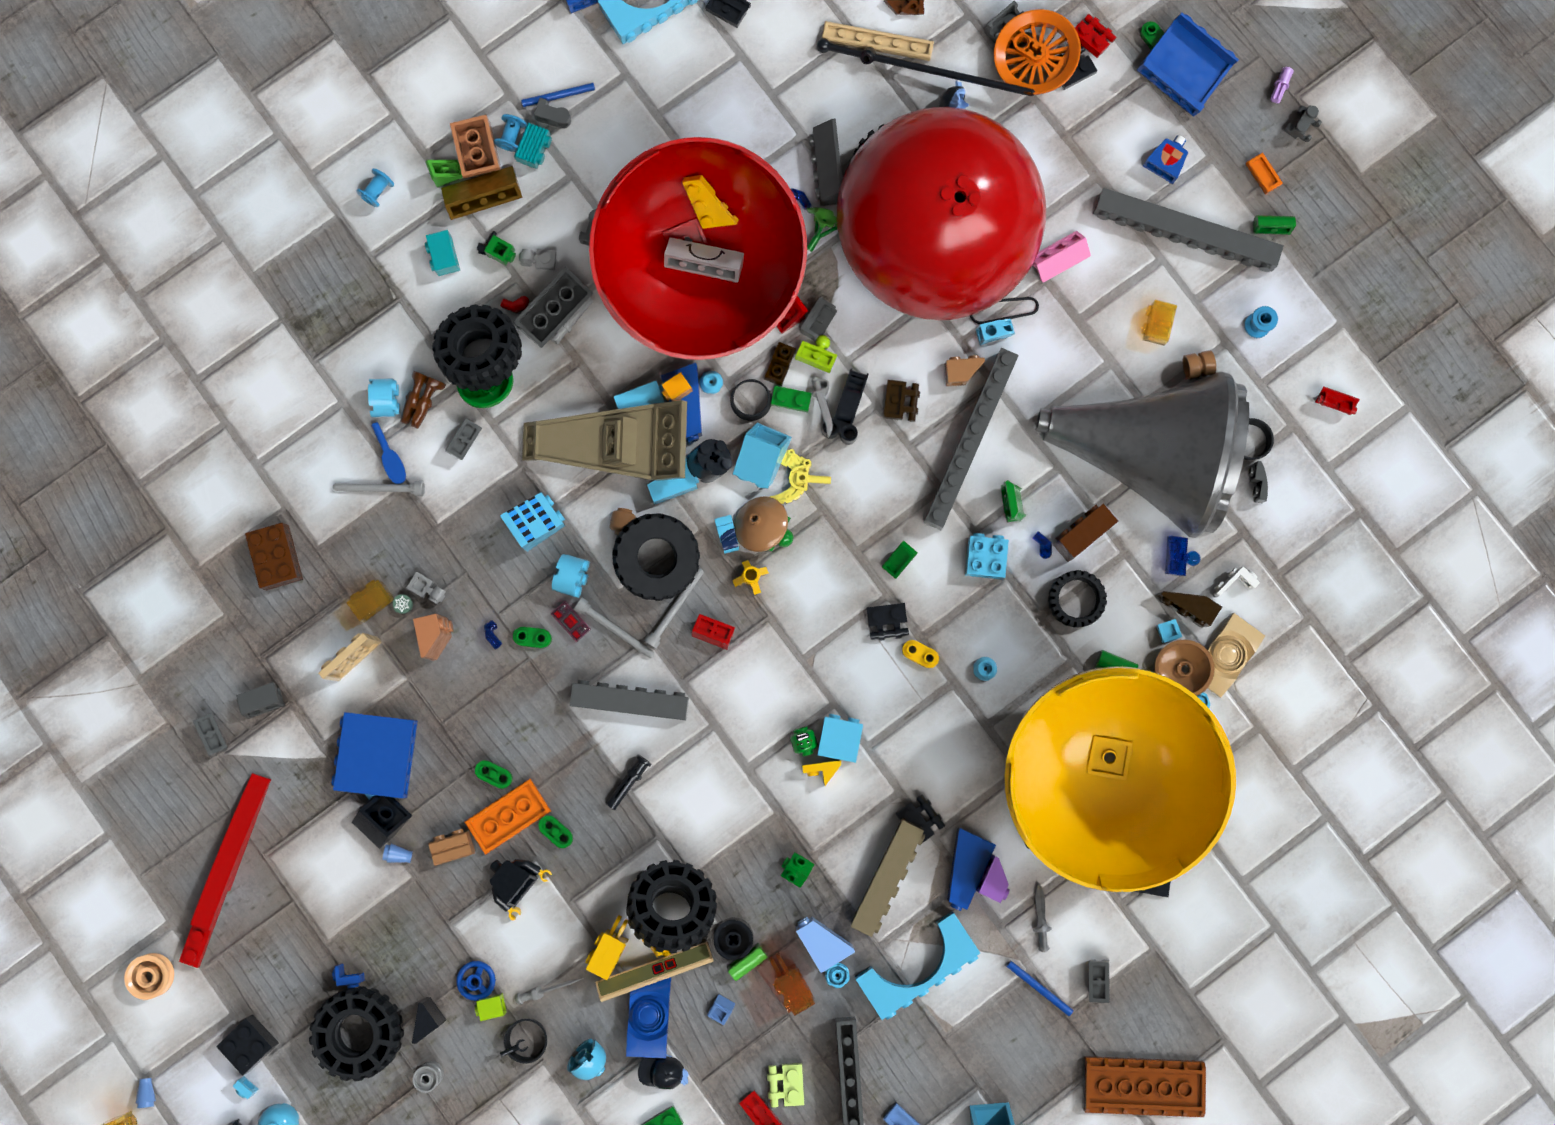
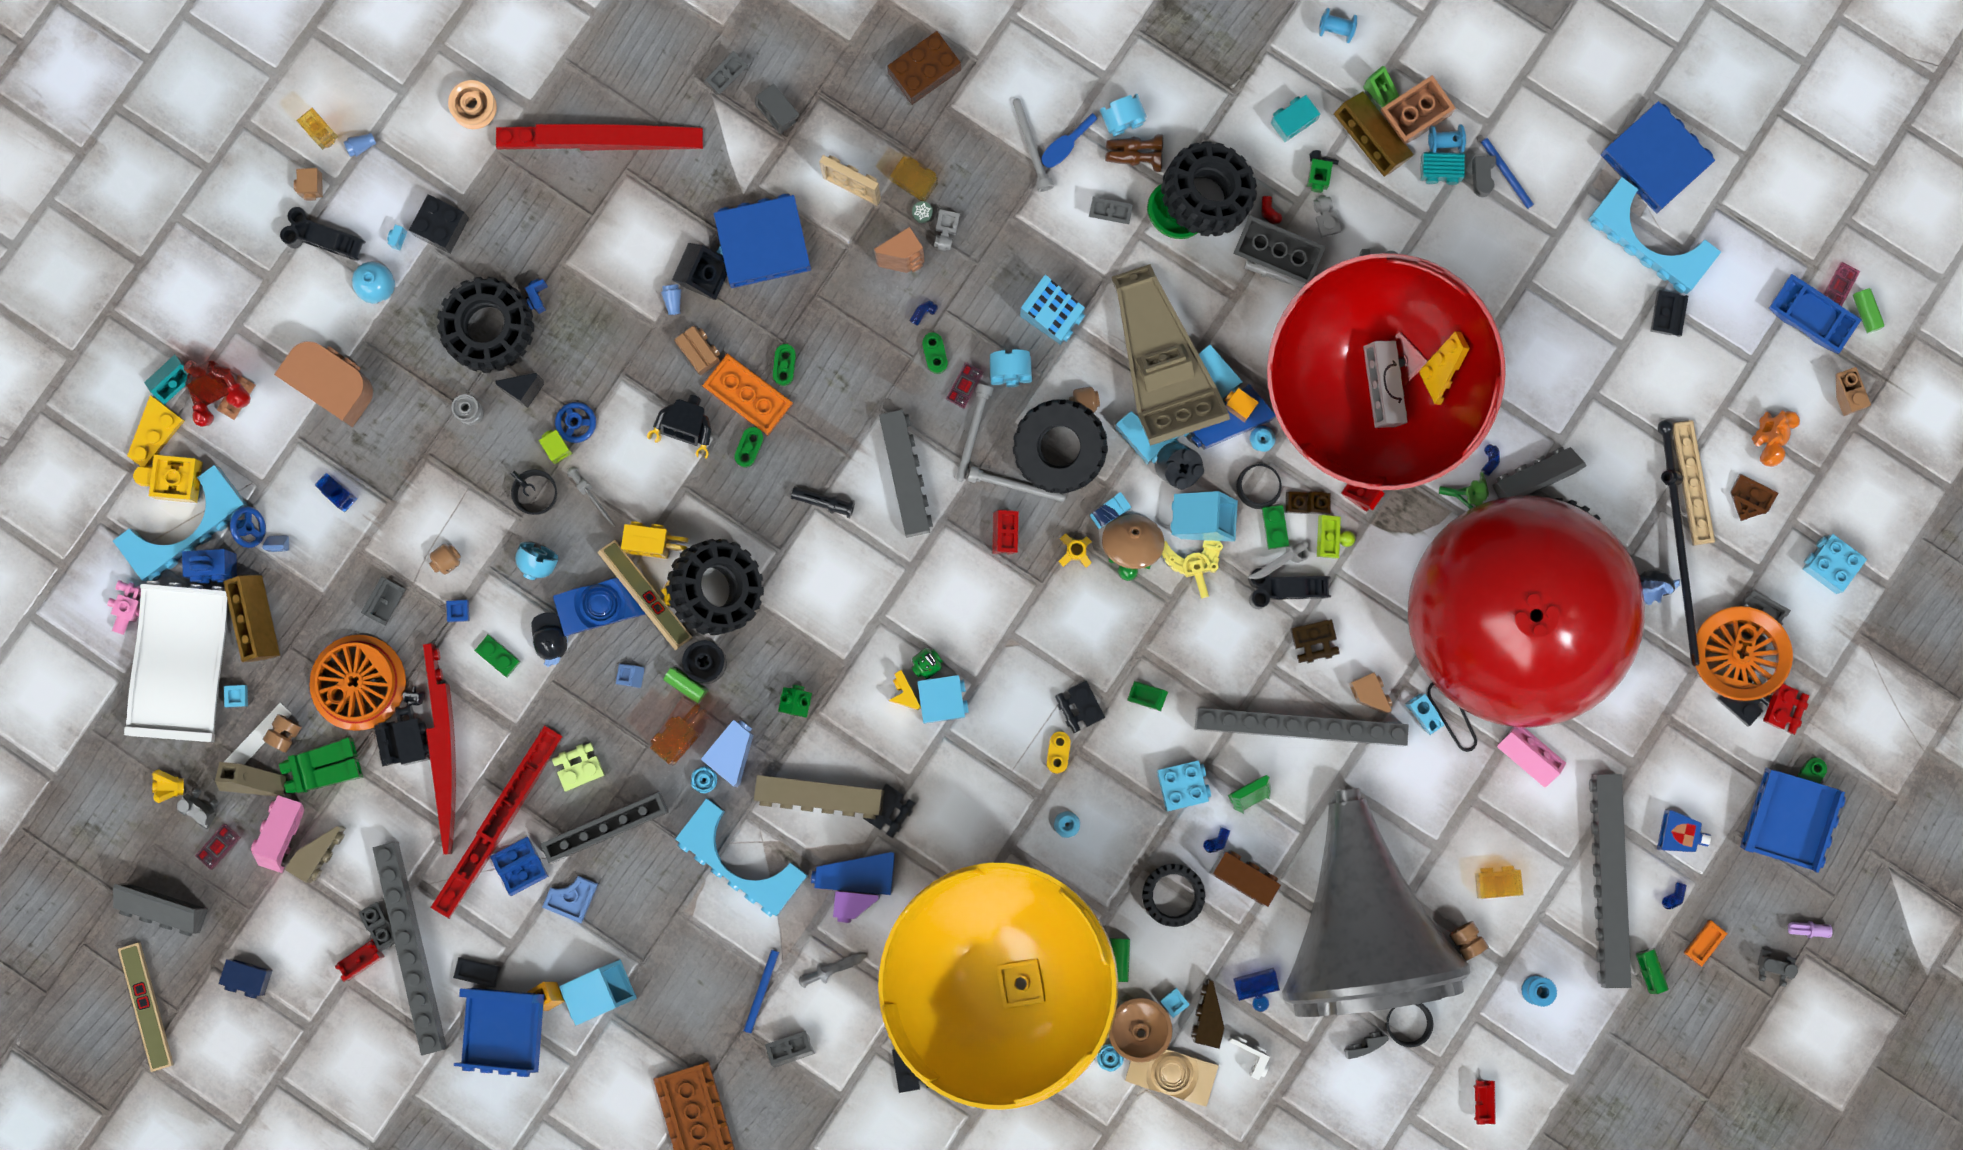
camera: 70 degrees right, 0 degrees up
(818, 319) = (1369, 525): dark grey hinge -> none
(1219, 183) = (1675, 899): none -> clear blue arm

